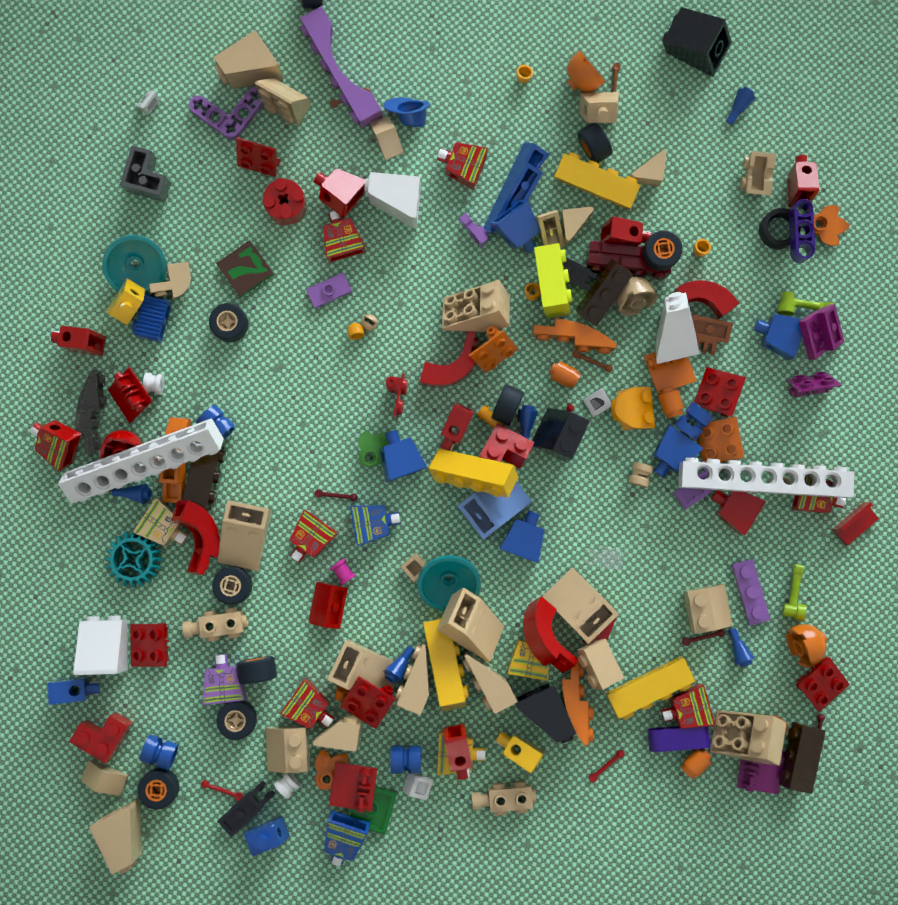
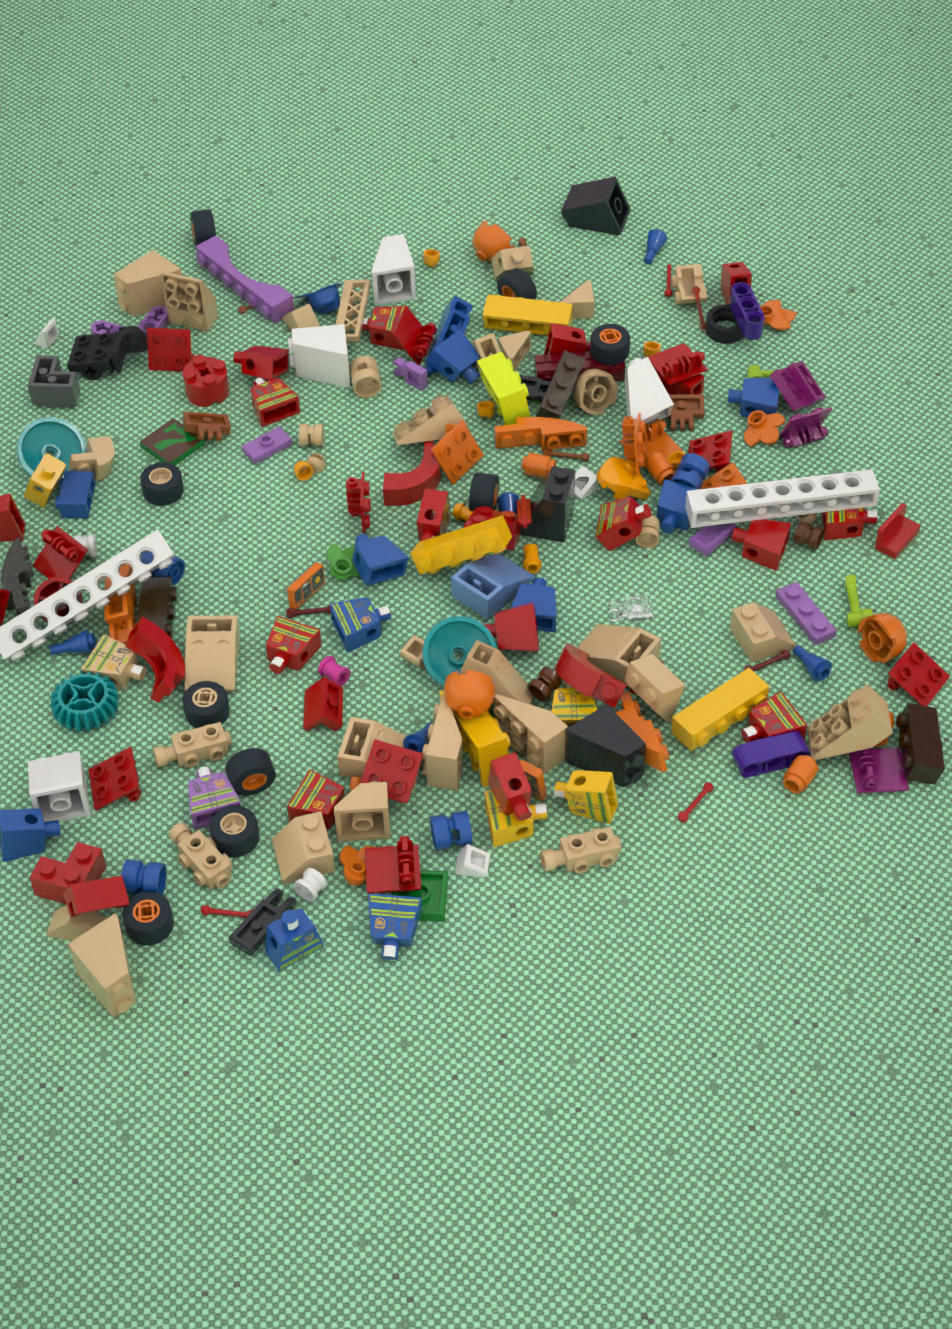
camera: 10 degrees left, 35 degrees down
(117, 776) = (96, 895): none -> red hinge
(196, 144) = (105, 351): none -> black plate
(211, 741) = (197, 852): none -> tan brick
(277, 260) = (206, 424): none -> dark orange hinge
(335, 473) = (306, 585): none -> tile
(370, 290) = (316, 432): none -> tan wheel
(428, 140) = (348, 309): none -> tan fence
(431, 225) = (365, 376): none -> tan wheel
(442, 654) = (469, 693): none -> orange cylinder
(478, 731) = (536, 780): none -> orange tile
(483, 95) = (393, 272): none -> white slope
(485, 186) = (414, 336): none -> red hinge
(500, 567) = (516, 628): none -> red torso
(516, 631) = (545, 683): none -> reddish brown wheel
(533, 481) = (532, 562): none -> light orange pin
(536, 442) = (524, 511): none -> red axle
(619, 465) = (620, 522): none -> red torso
(654, 378) = (633, 442): none -> orange hinge
(688, 391) = (675, 458): none -> light orange hinge
(718, 286) = (678, 363): none -> red hinge
(737, 170) = (668, 292): none -> red hinge
(762, 187) = (696, 290): none -> clear red hinge
(777, 374) = (763, 428): none -> orange plate
(778, 510) = (807, 535): none -> reddish brown wheel

